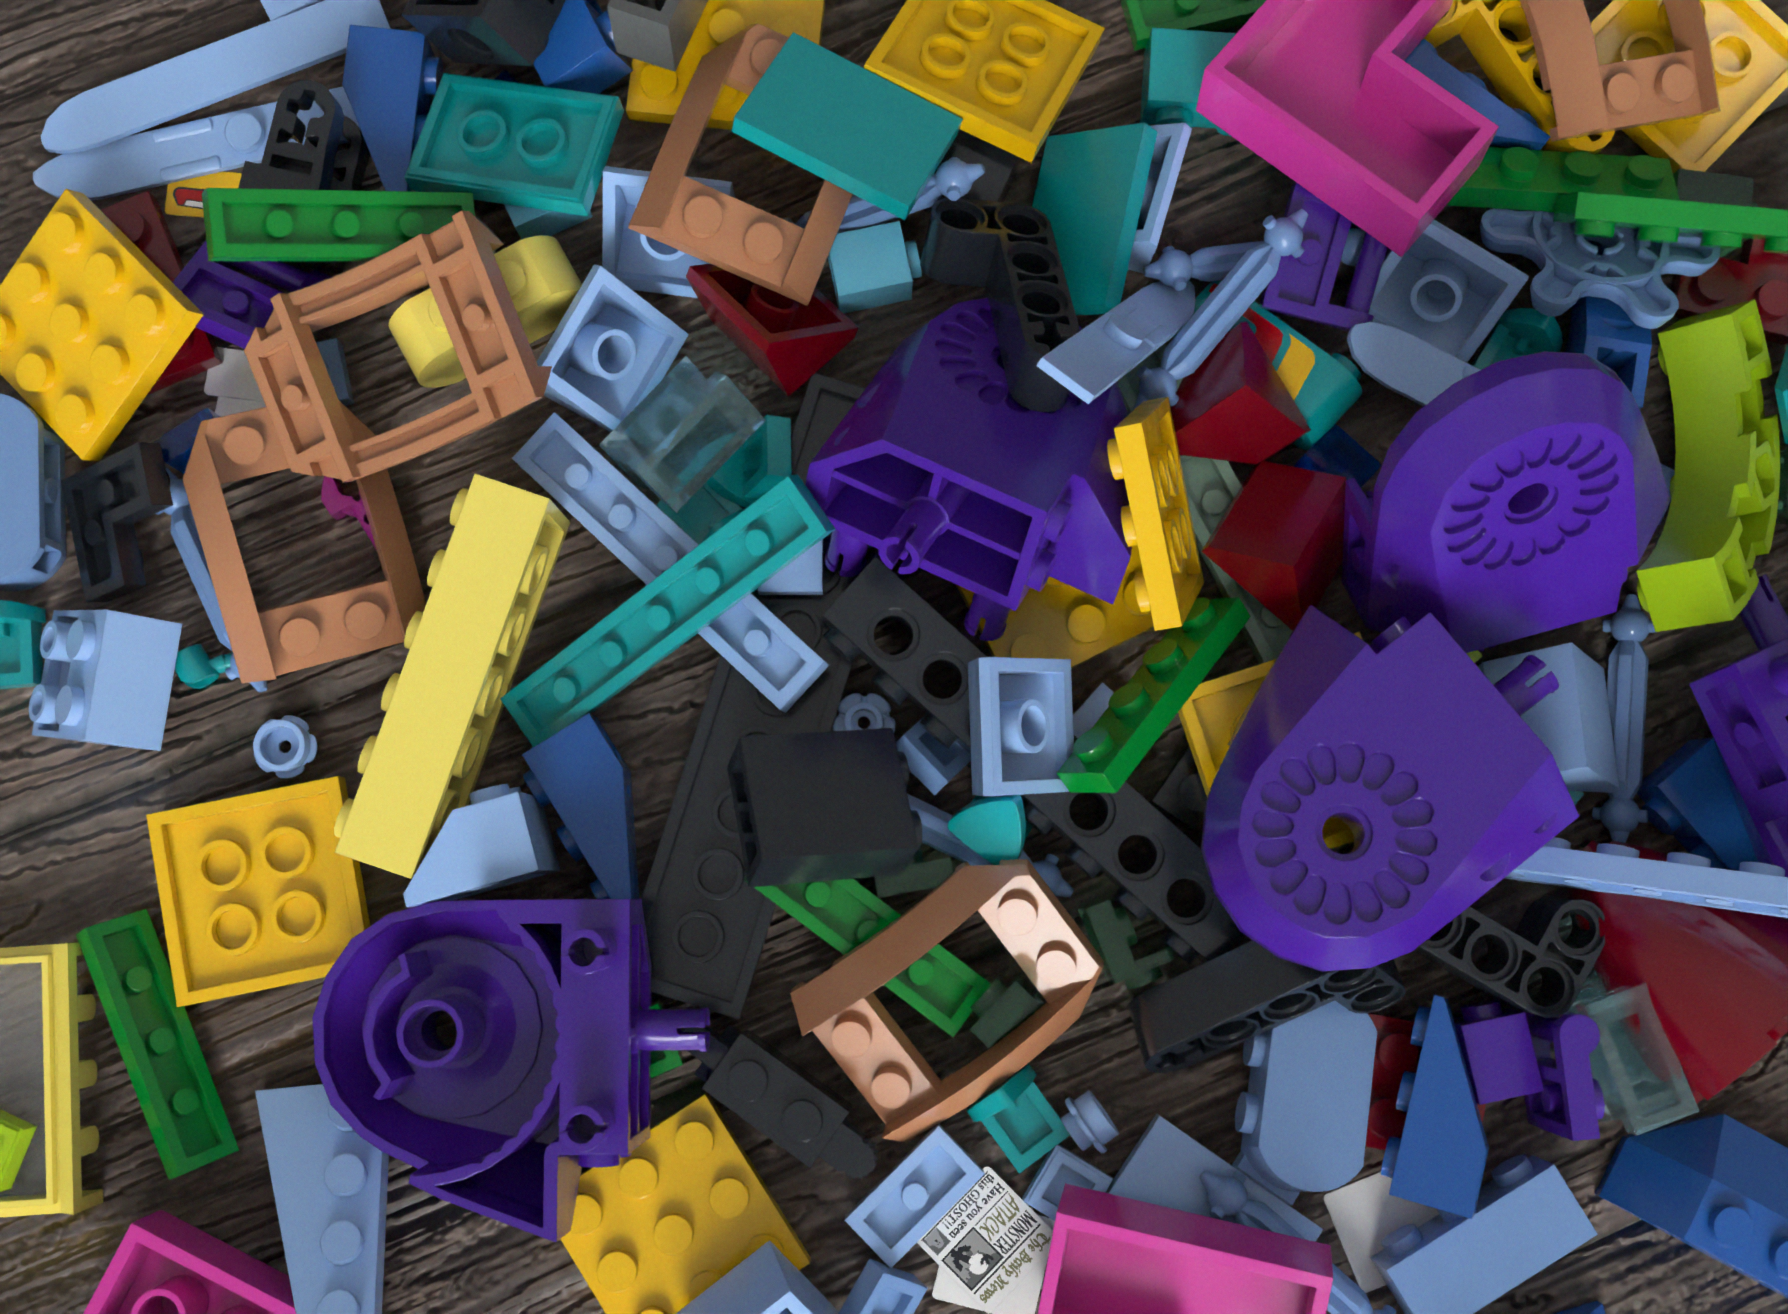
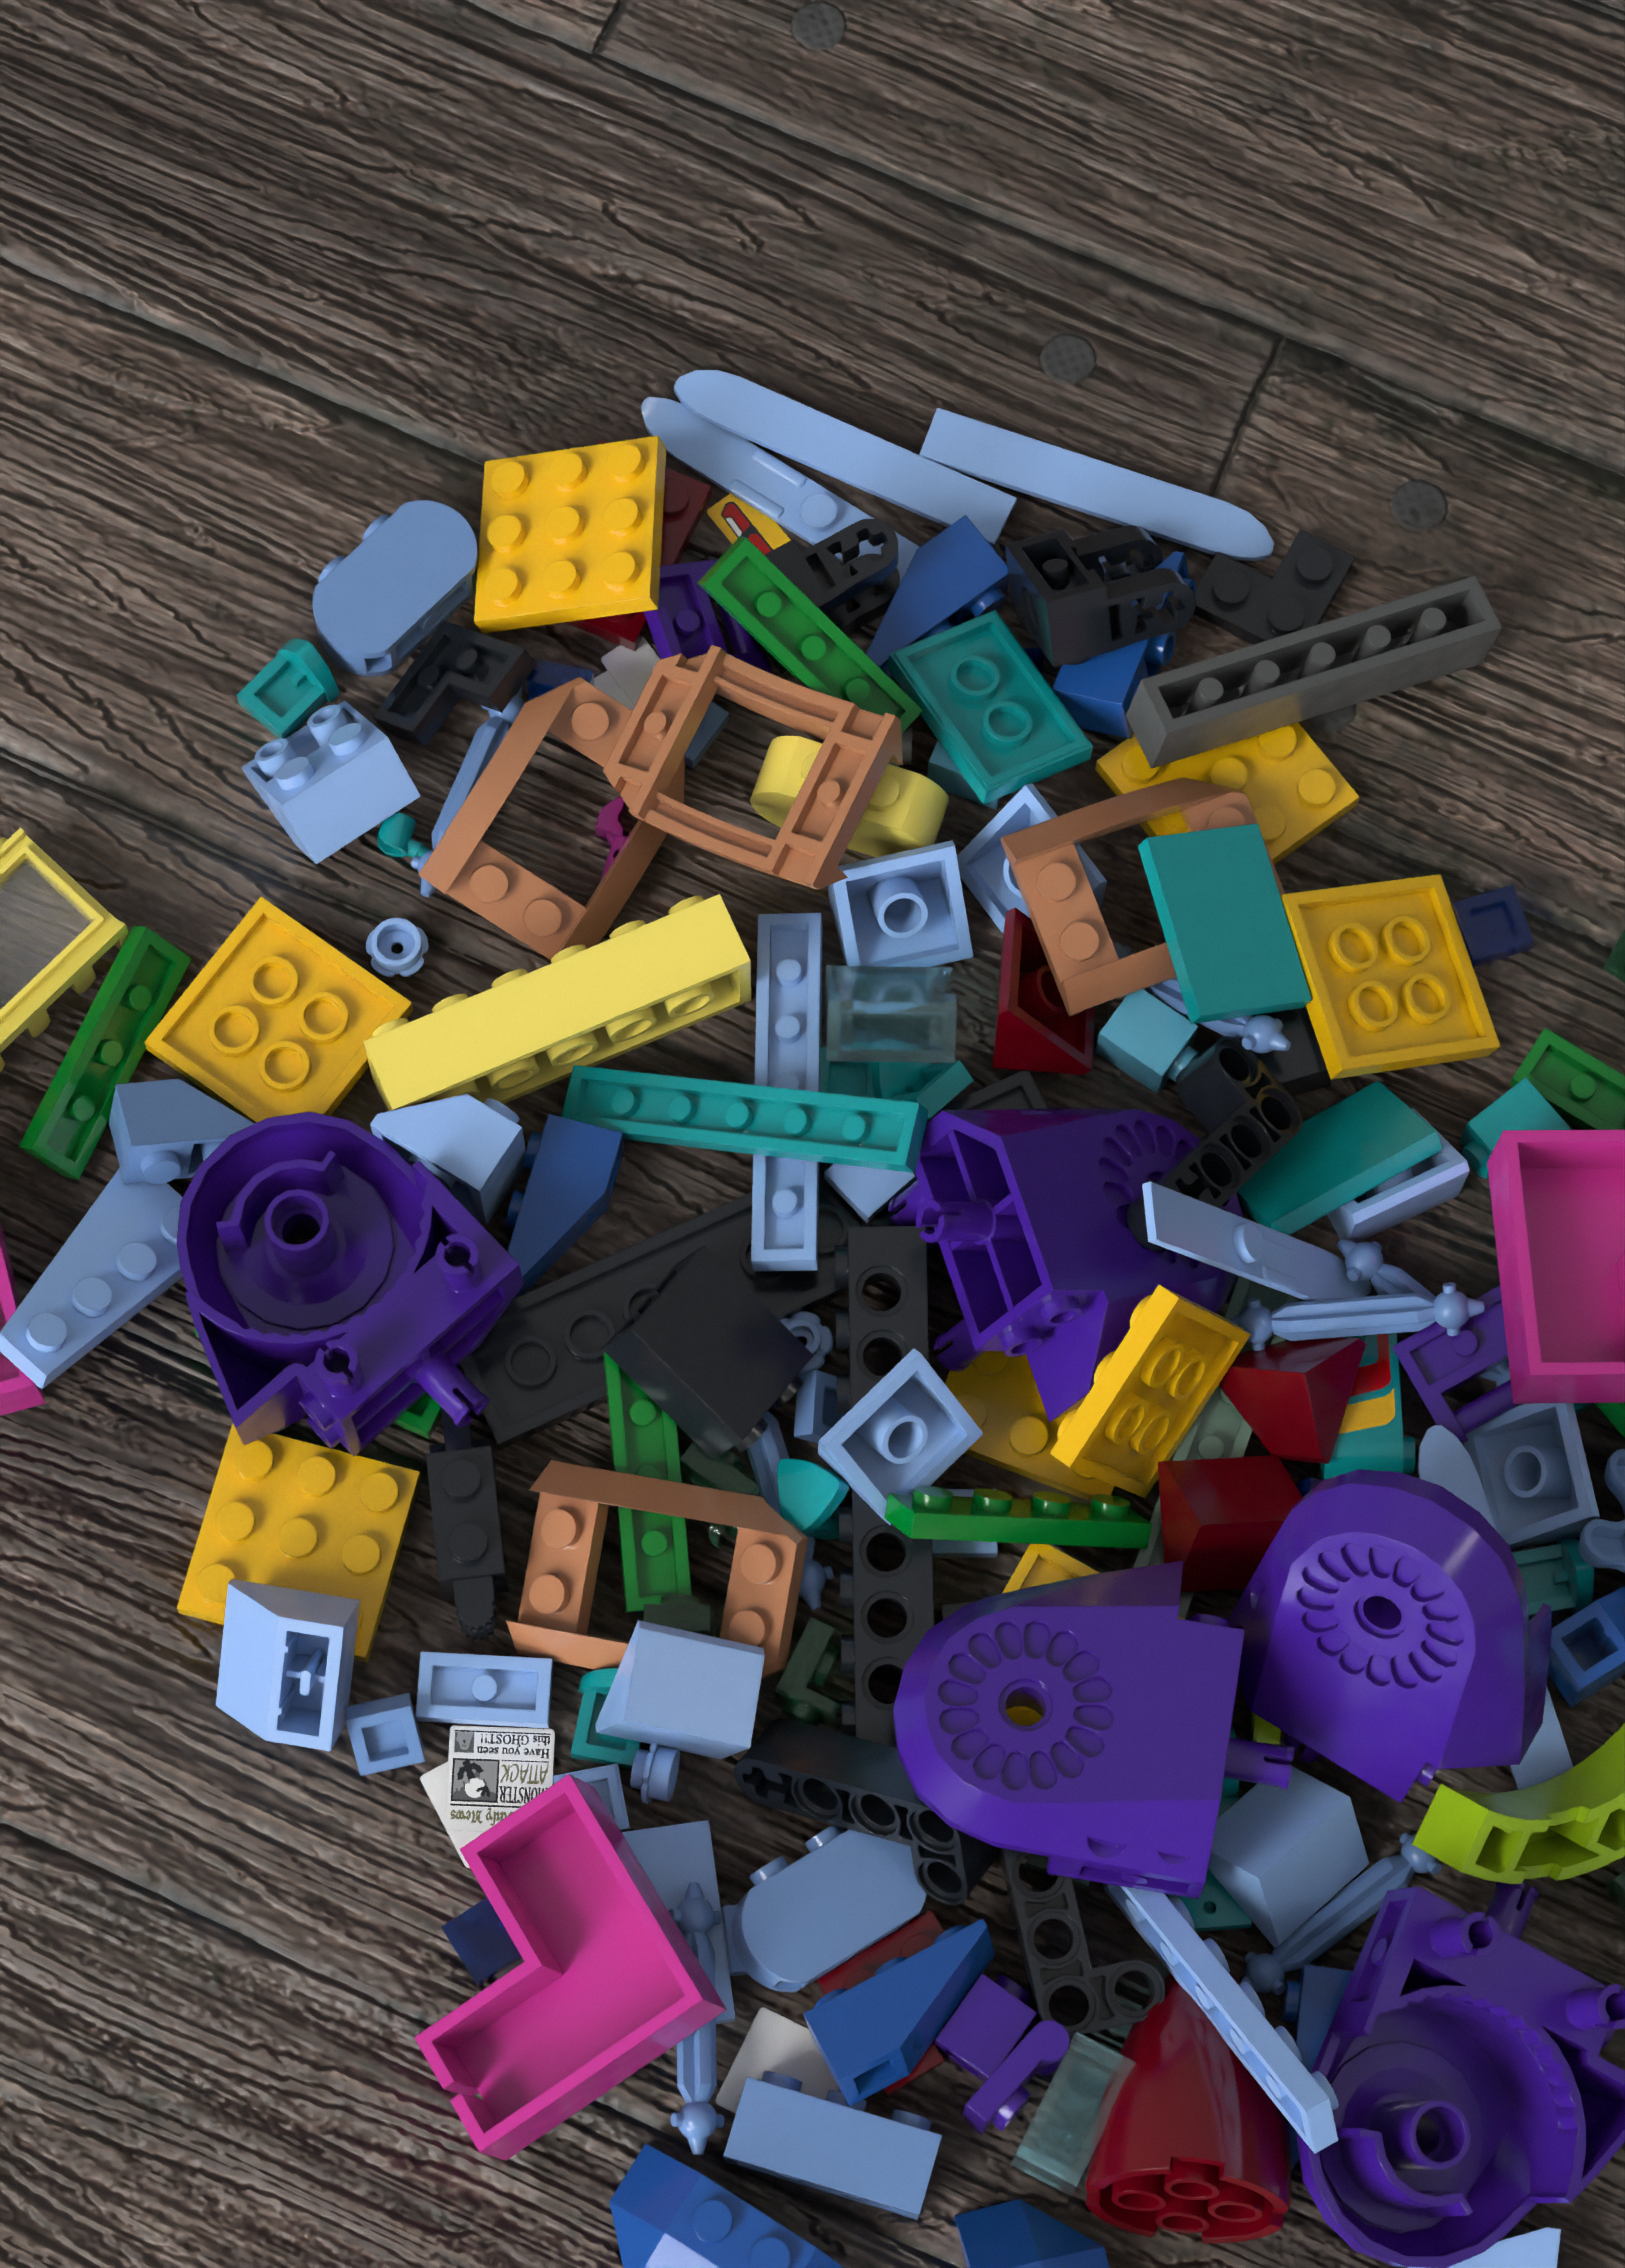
camera: 50 degrees right, 10 degrees down
(263, 1052) = (167, 1129): none -> medium blue slope
(1064, 1059) = (684, 1692): none -> light blue slope

